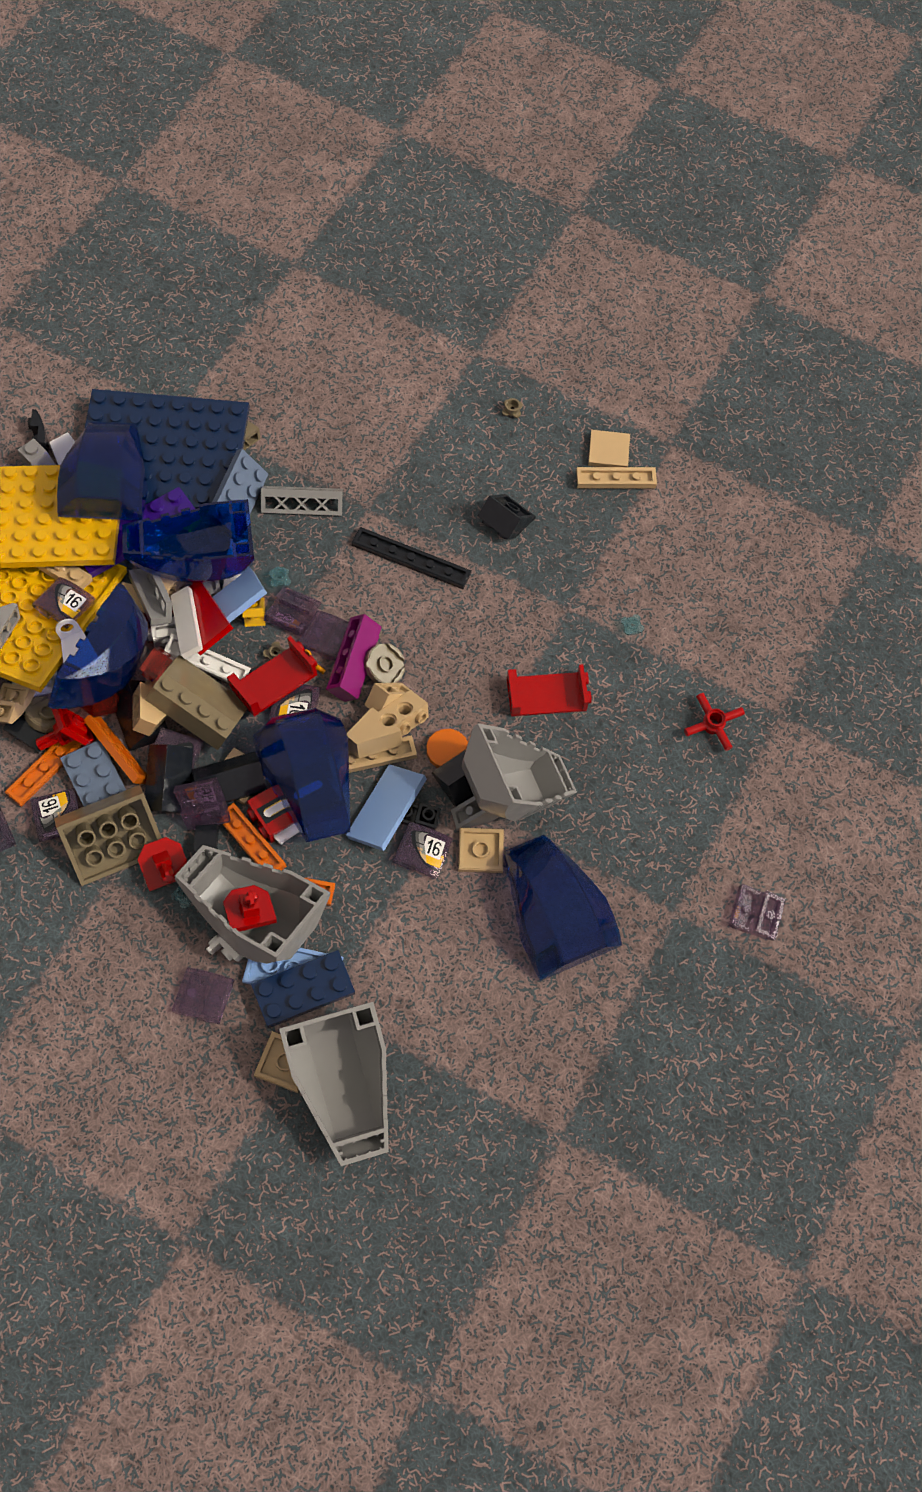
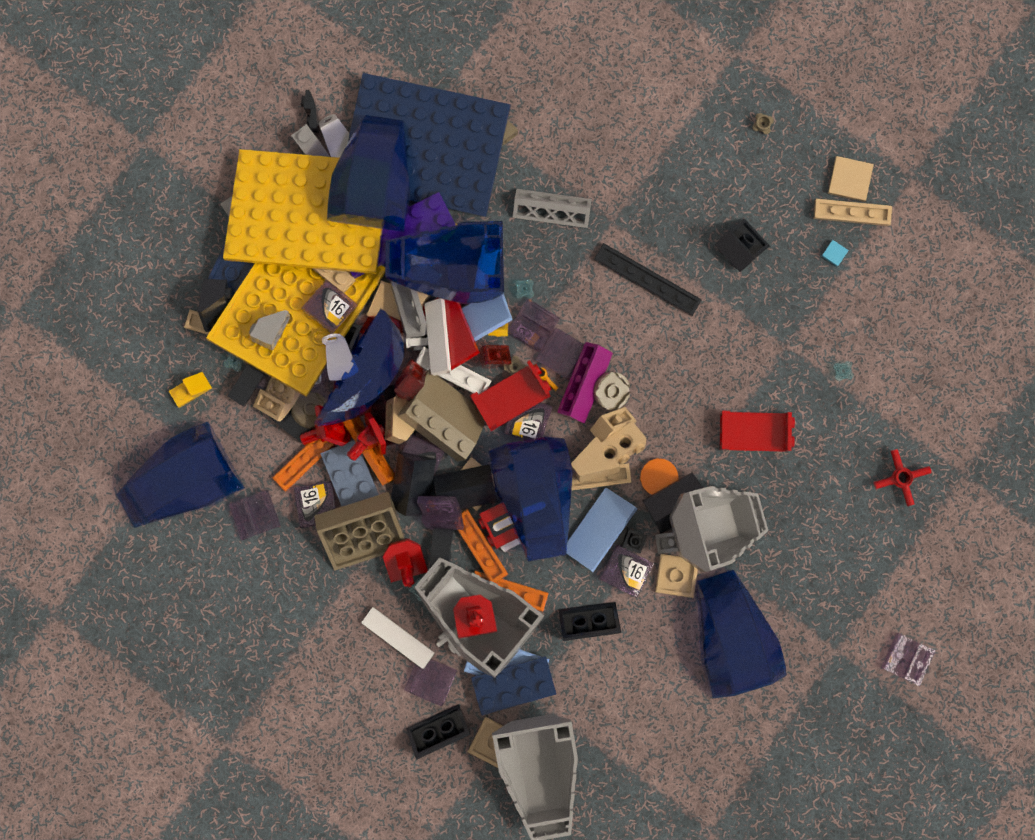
camera: 15 degrees right, 20 degrees up
(117, 730) = (370, 437): none -> red piece
(161, 950) = (398, 637): none -> white tile
(217, 1055) = (438, 731): none -> black slope
(242, 480) = (495, 193): sand blue plate -> none
(250, 639) = (494, 356): none -> clear red slope
(386, 910) = (589, 621): none -> black slope
(604, 517) = (834, 253): none -> medium azure tile

